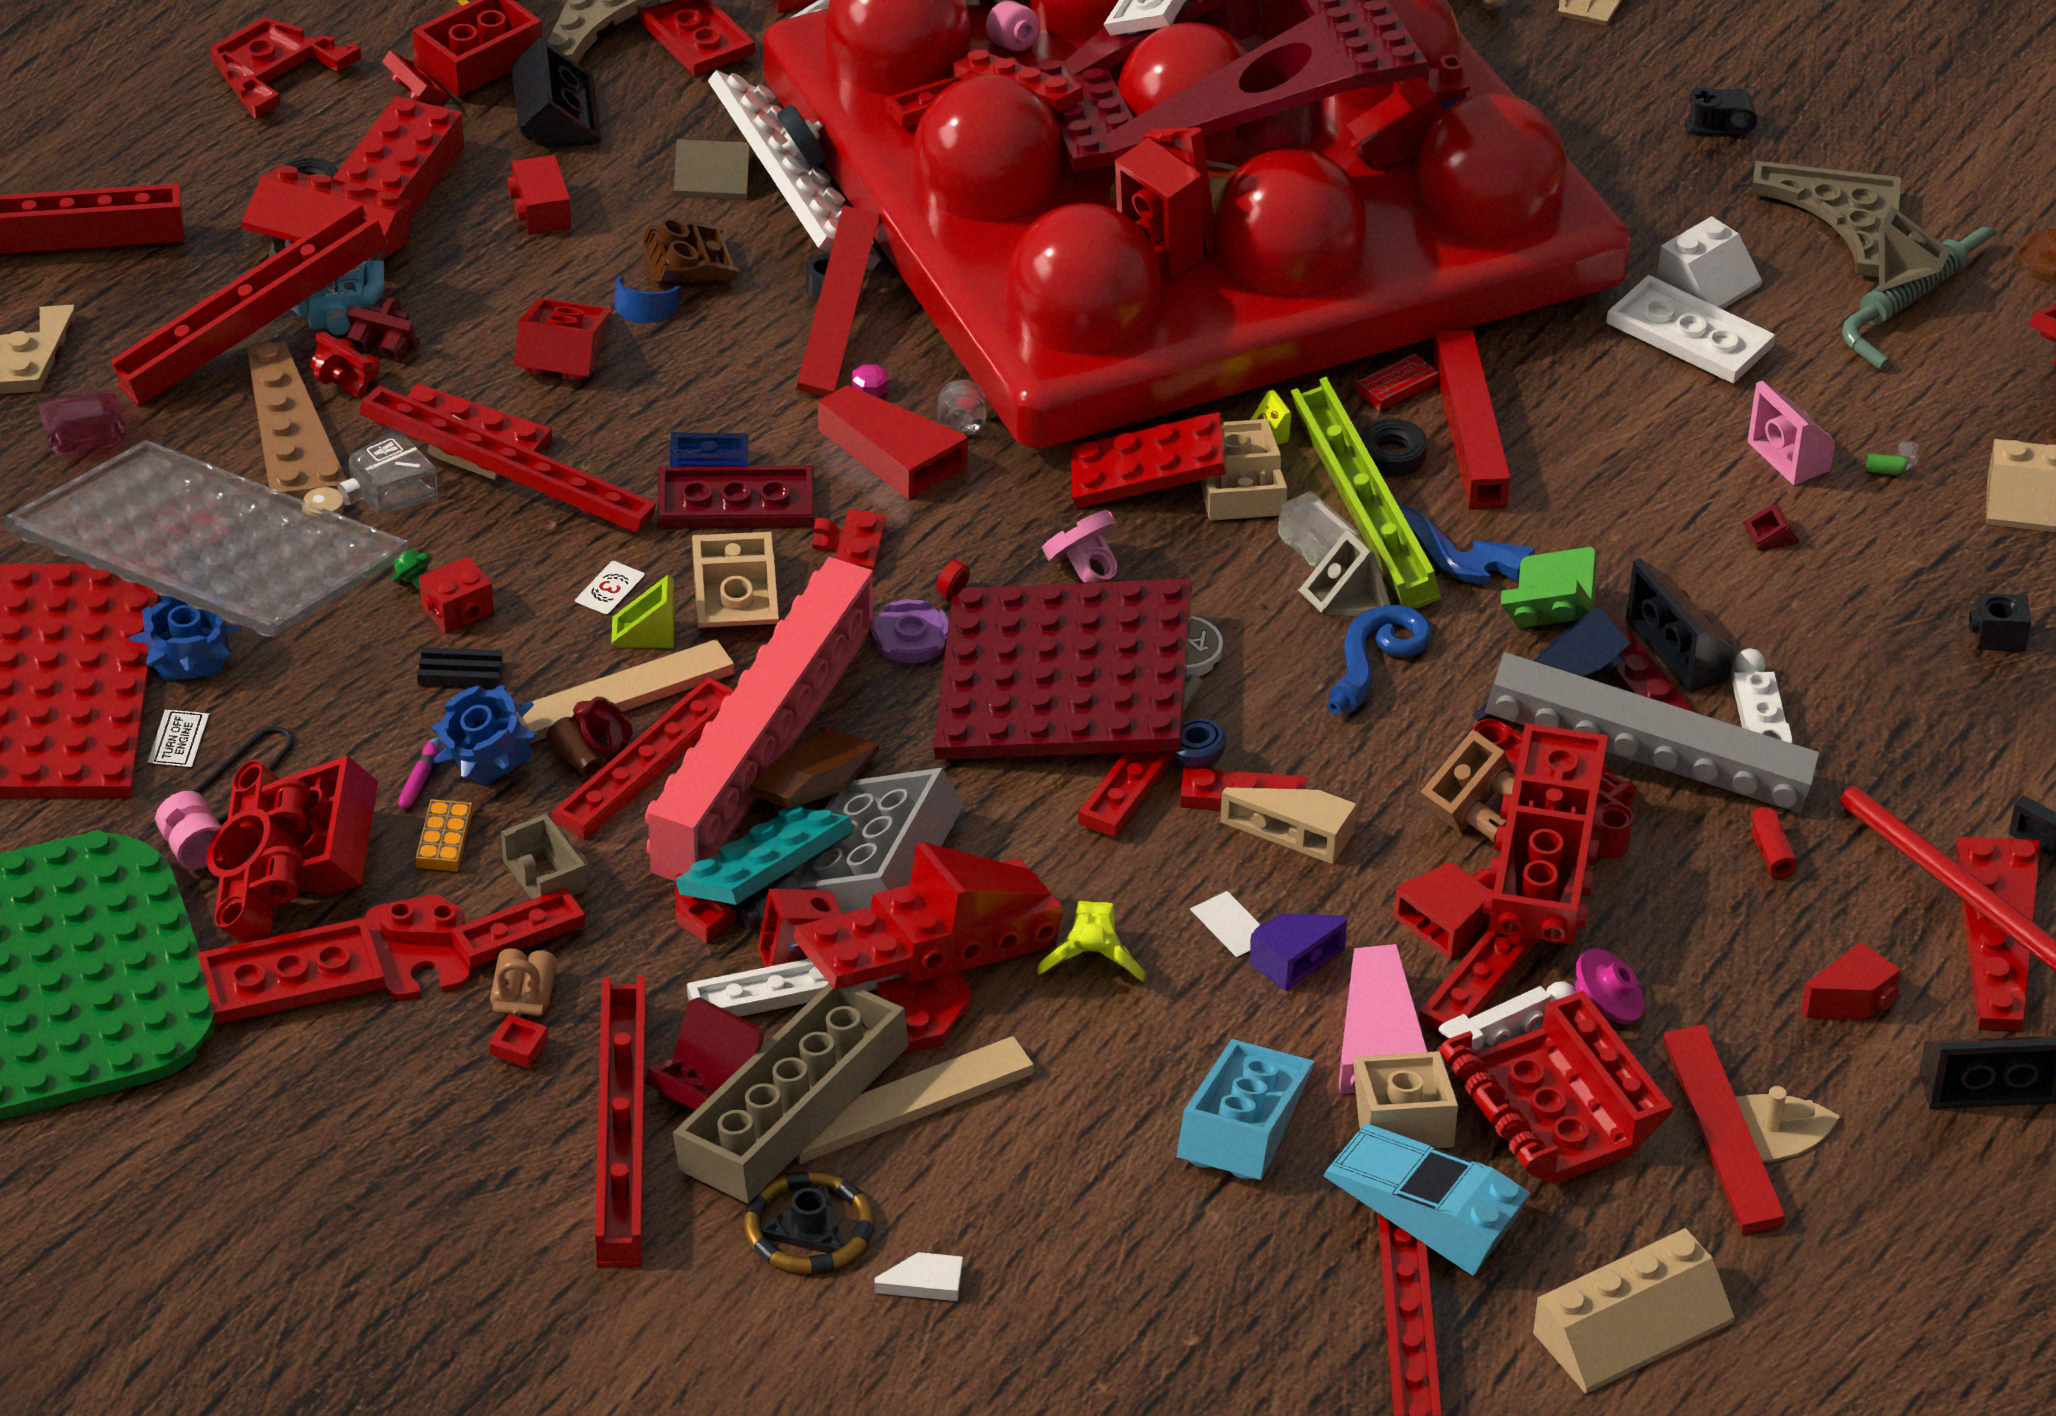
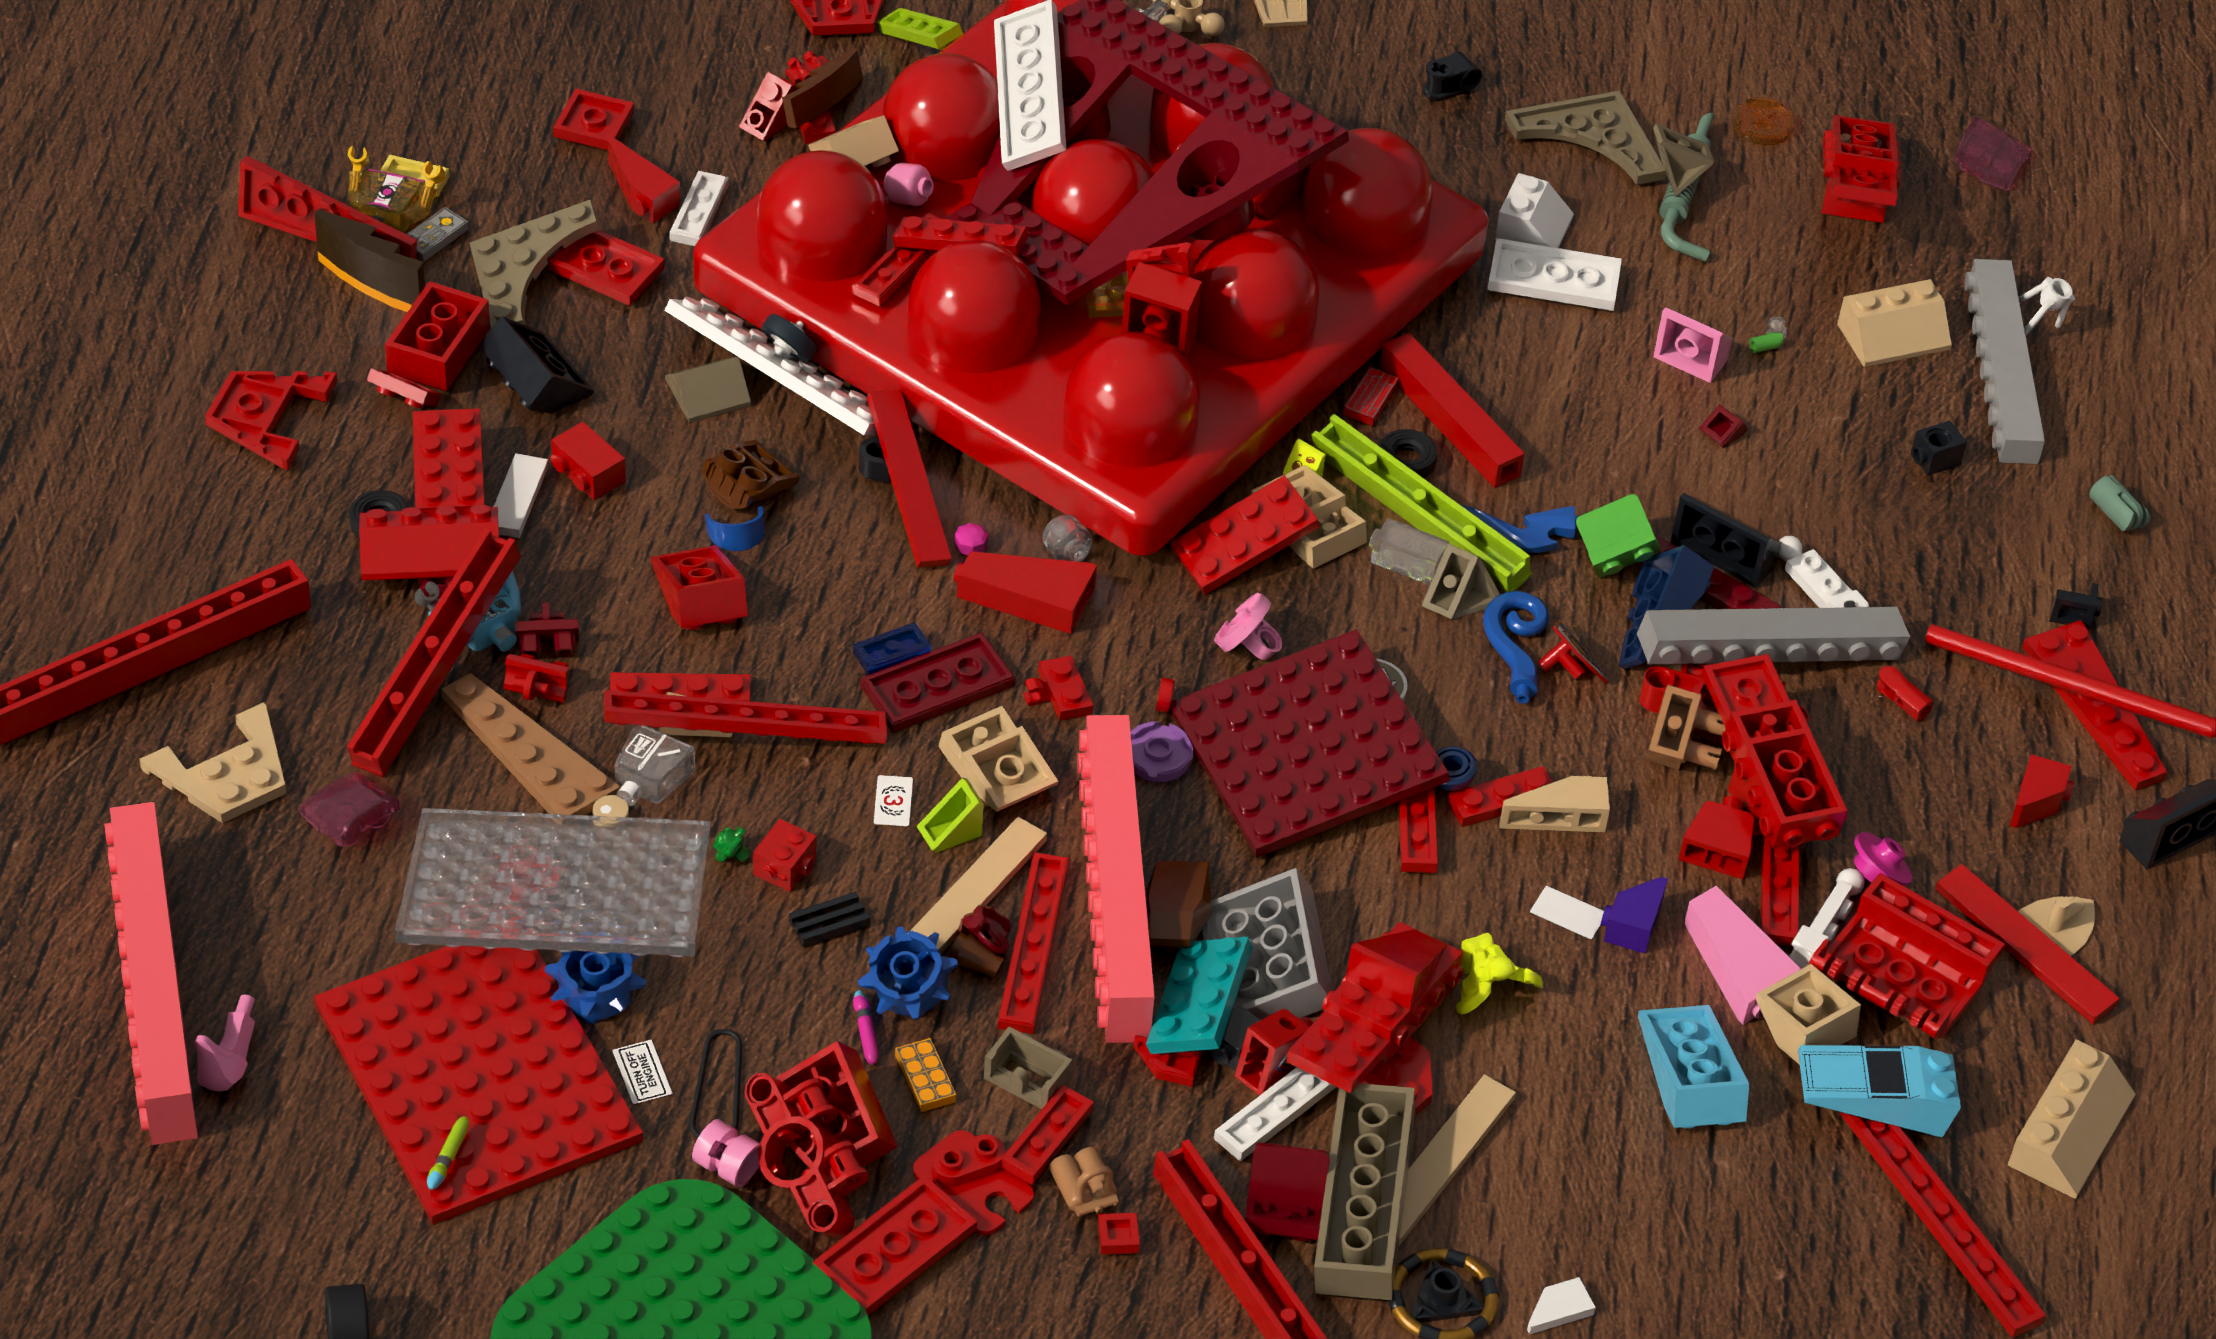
camera: 30 degrees left, 5 degrees up
(455, 205) = (519, 493): none -> white tile
(1420, 679) = (1562, 654): none -> red shield

